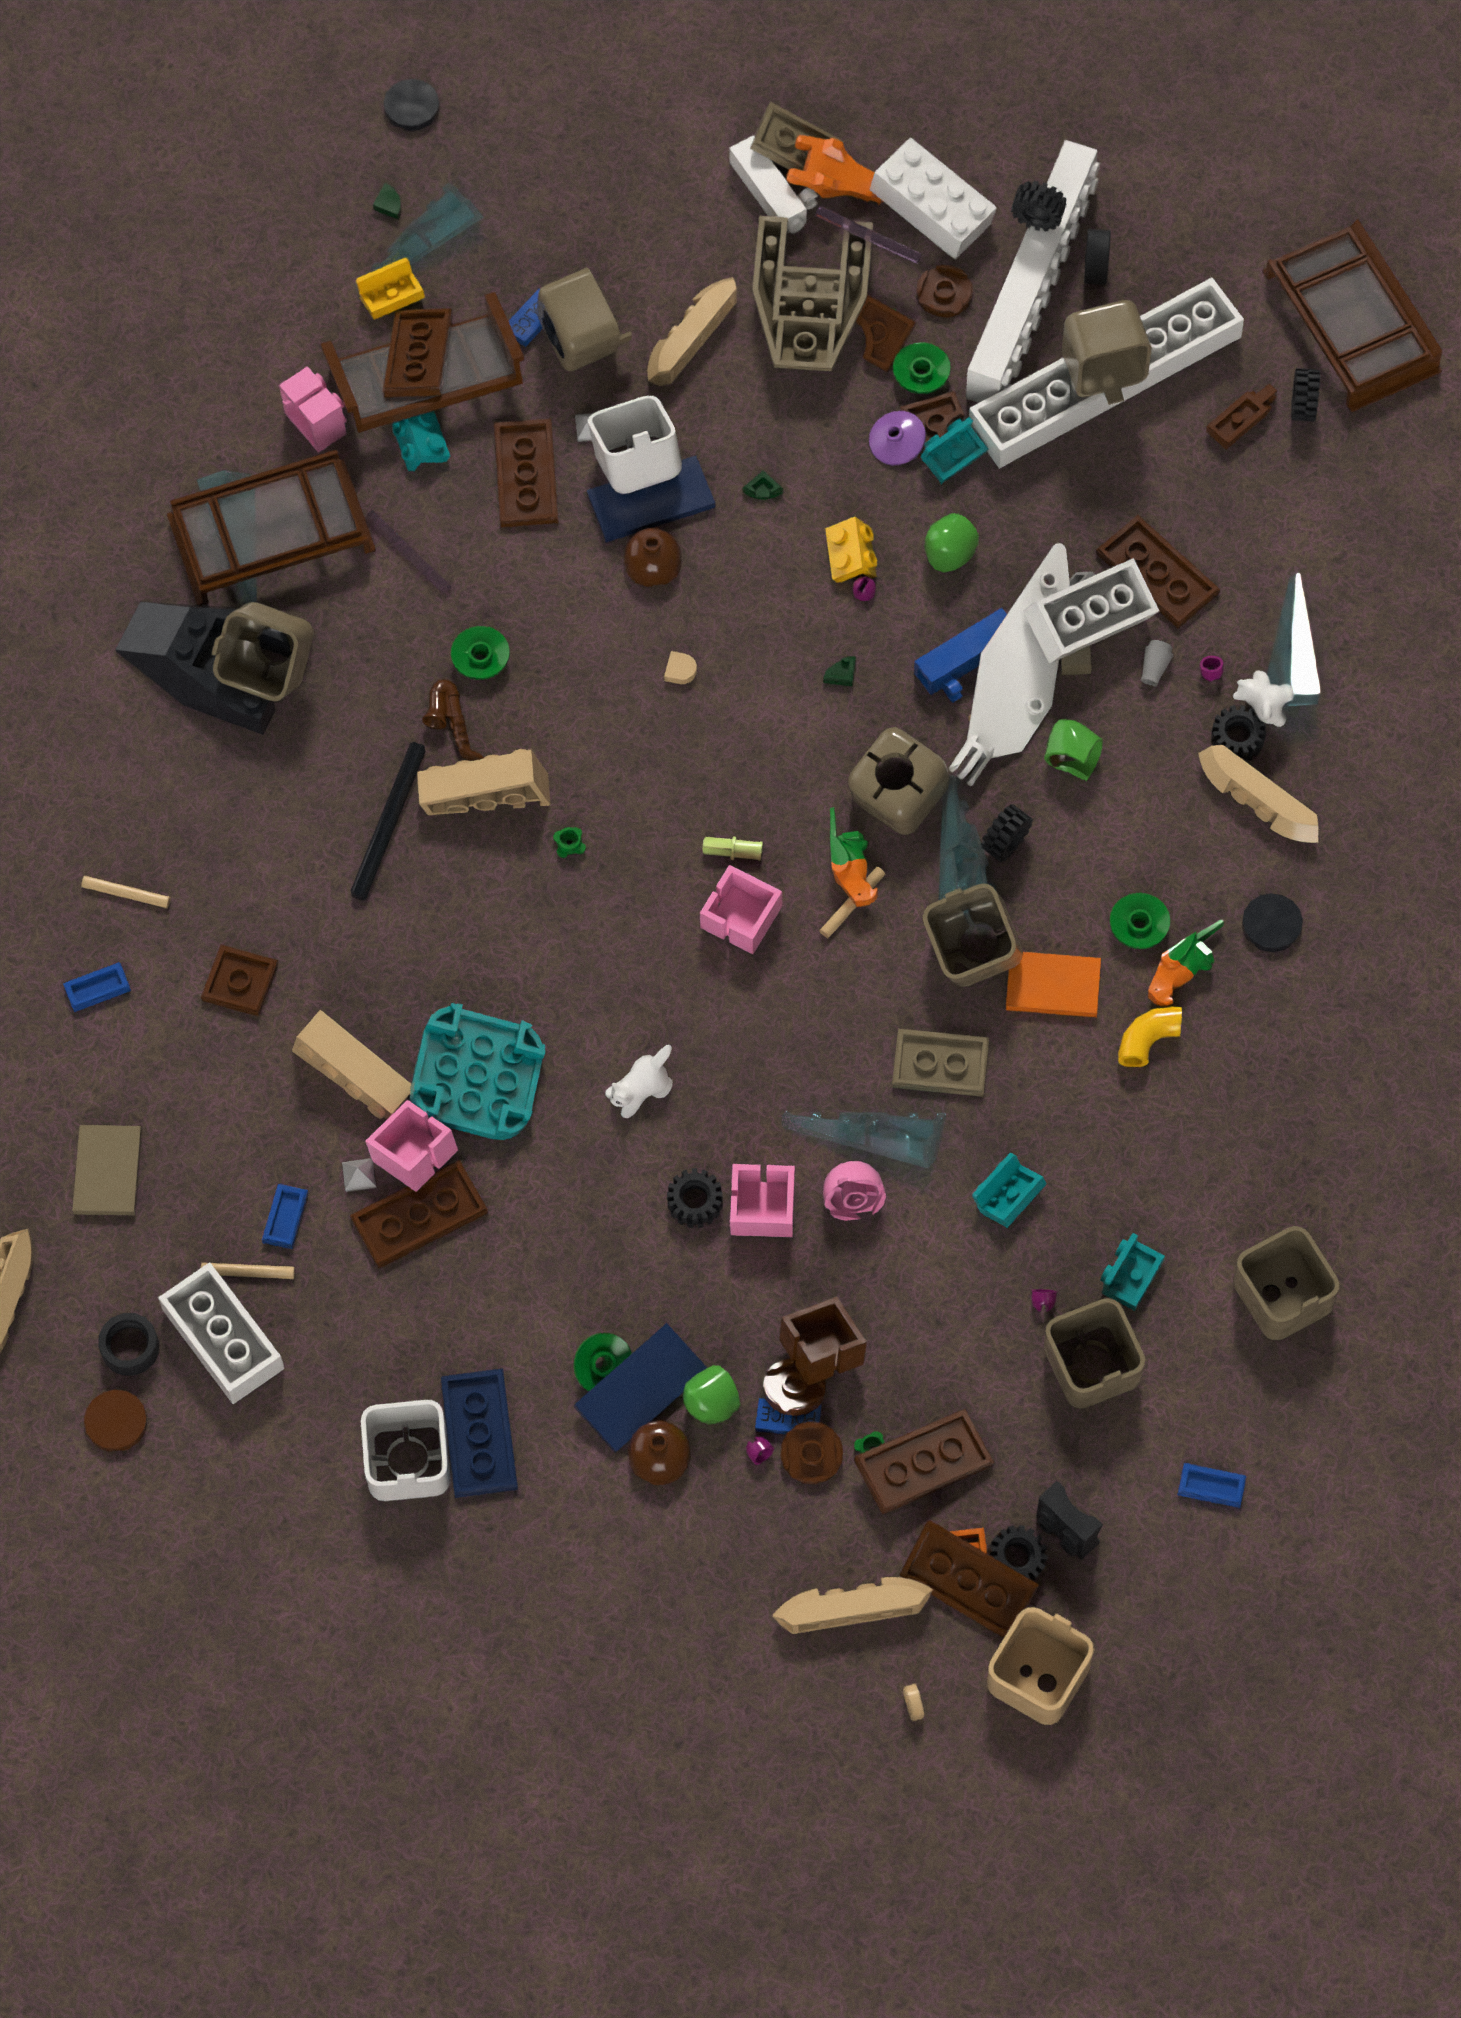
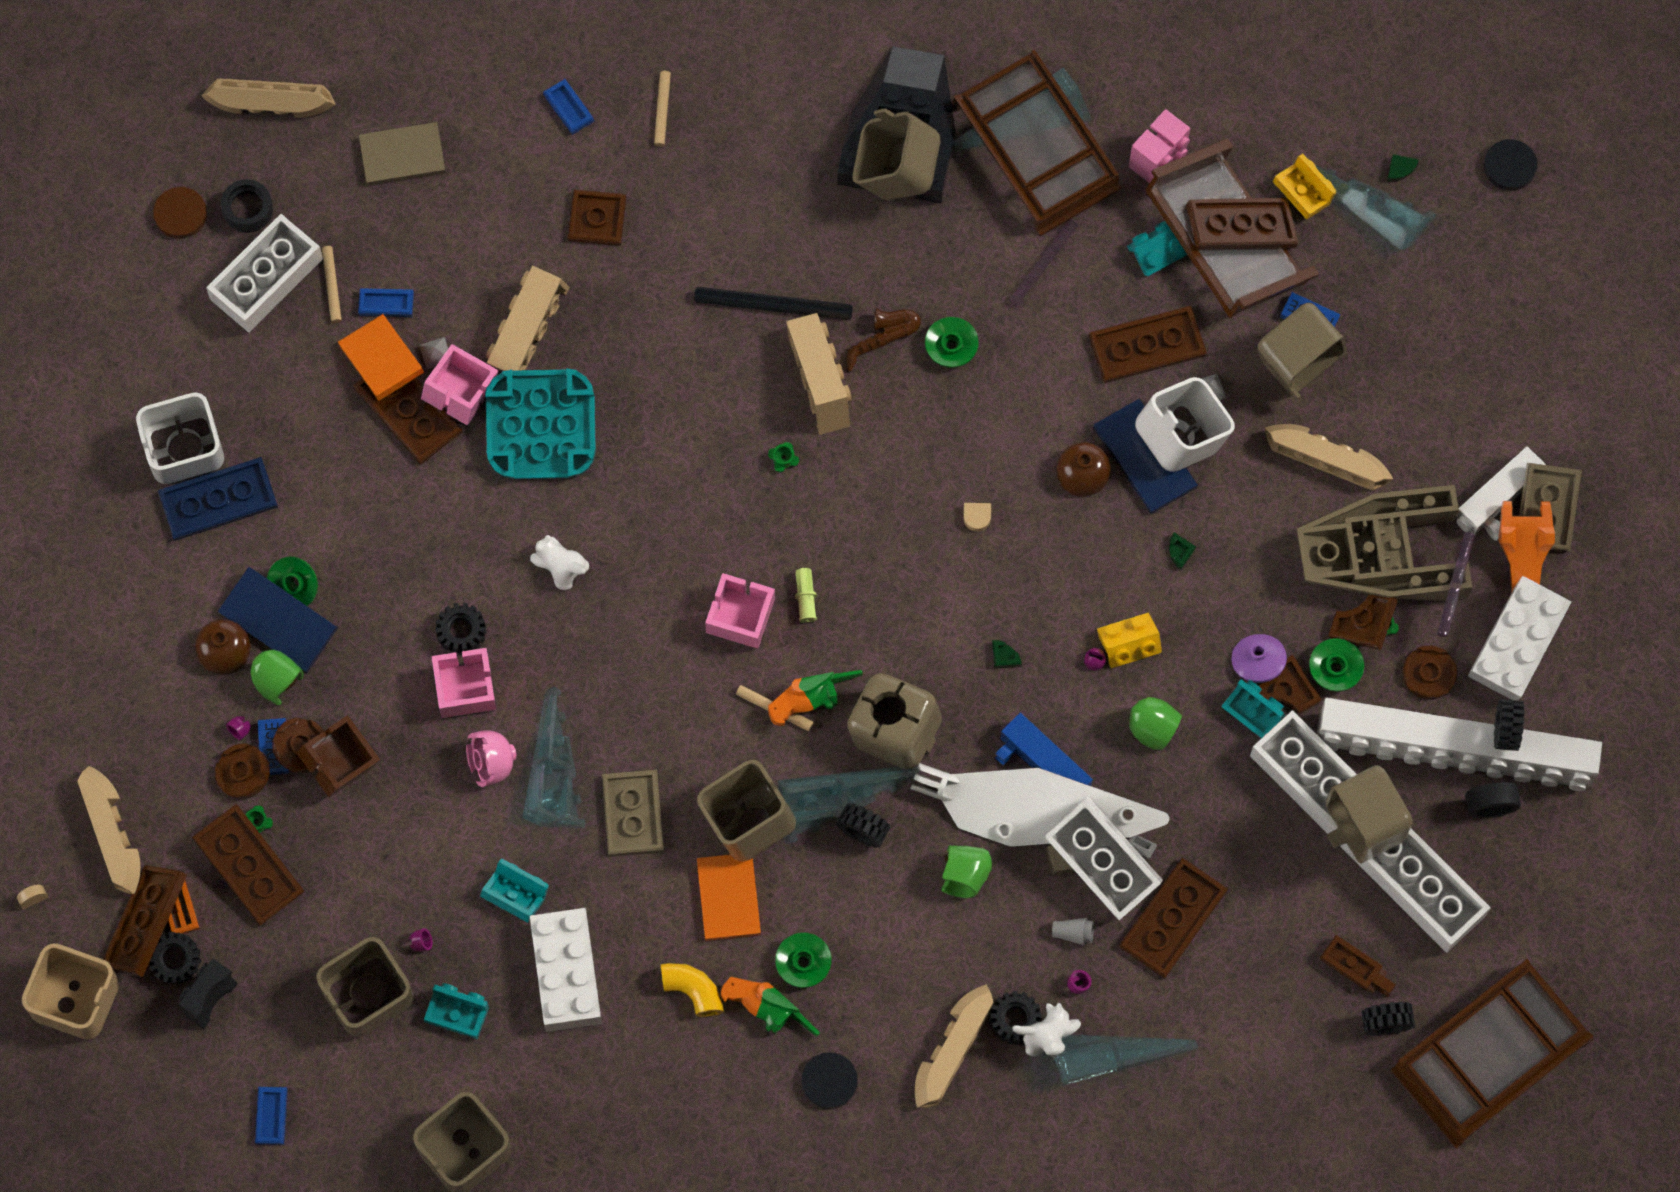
camera: 75 degrees right, 5 degrees up
(353, 1227) = (380, 357): none -> orange tile
(1107, 1153) = (565, 970): none -> white brick

